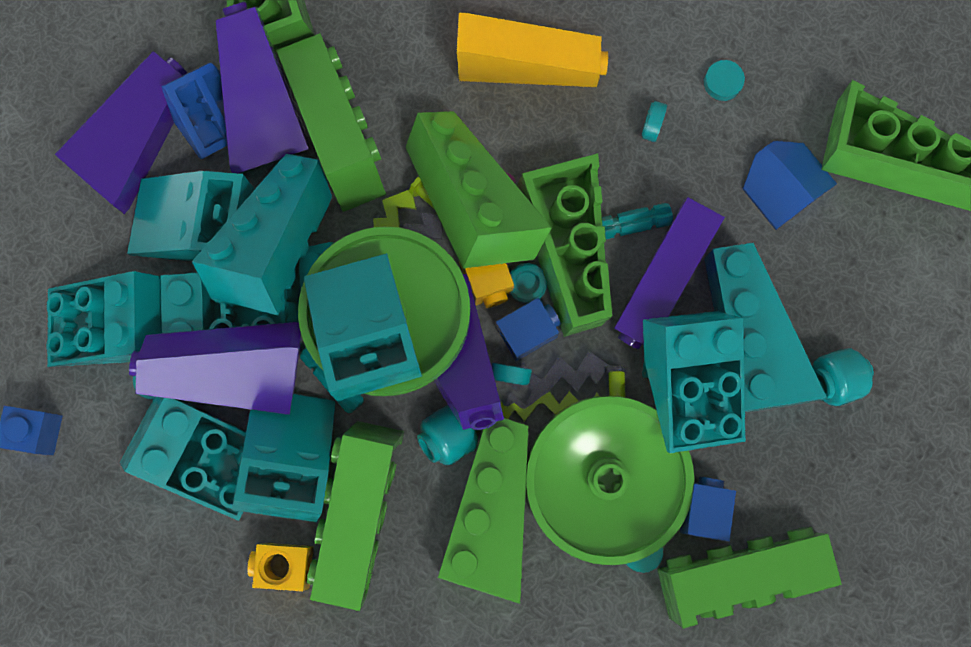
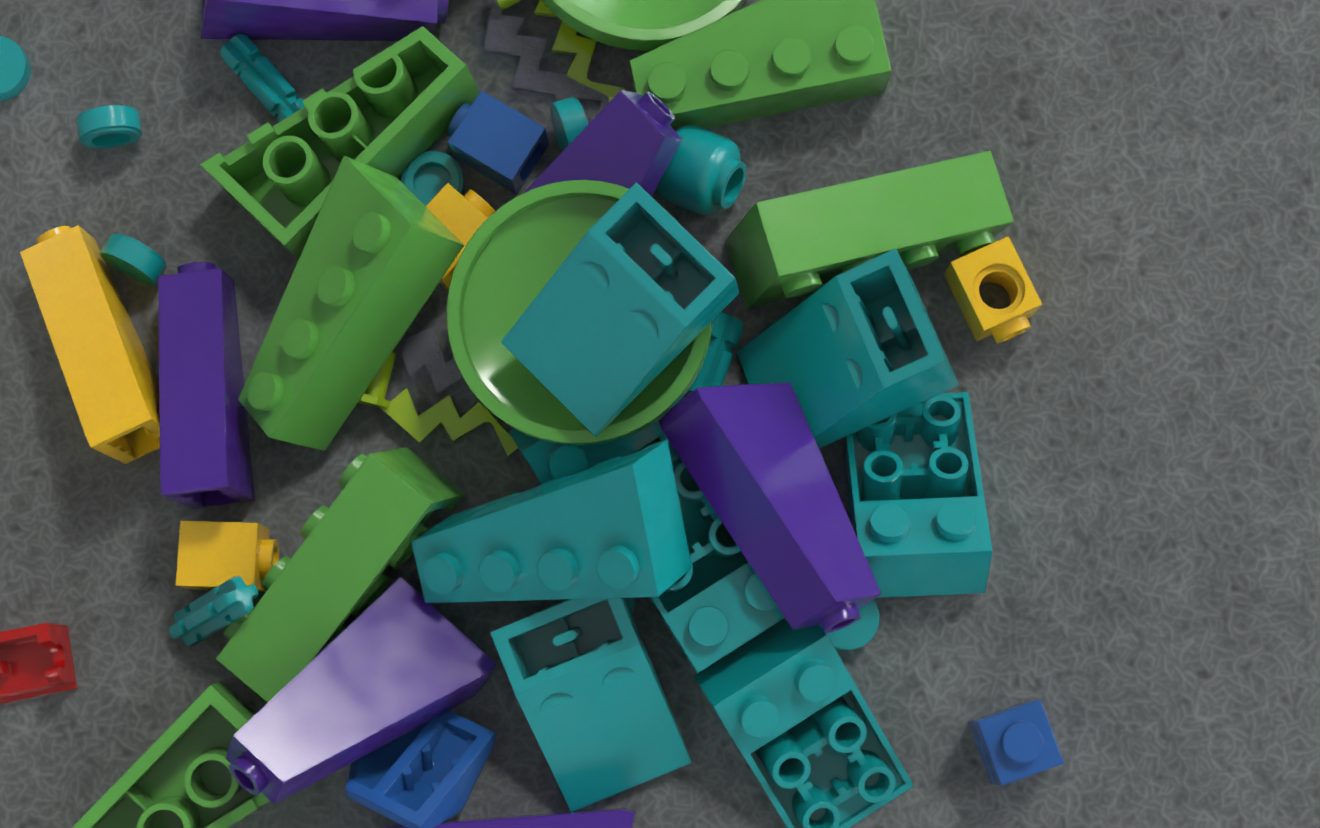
camera: 115 degrees left, 0 degrees up
(347, 45) = (213, 611): none -> teal axle
(375, 67) = (221, 550): none -> yellow brick
(482, 101) = (200, 380): none -> dark purple slope
(569, 98) = (133, 259): none -> teal tile

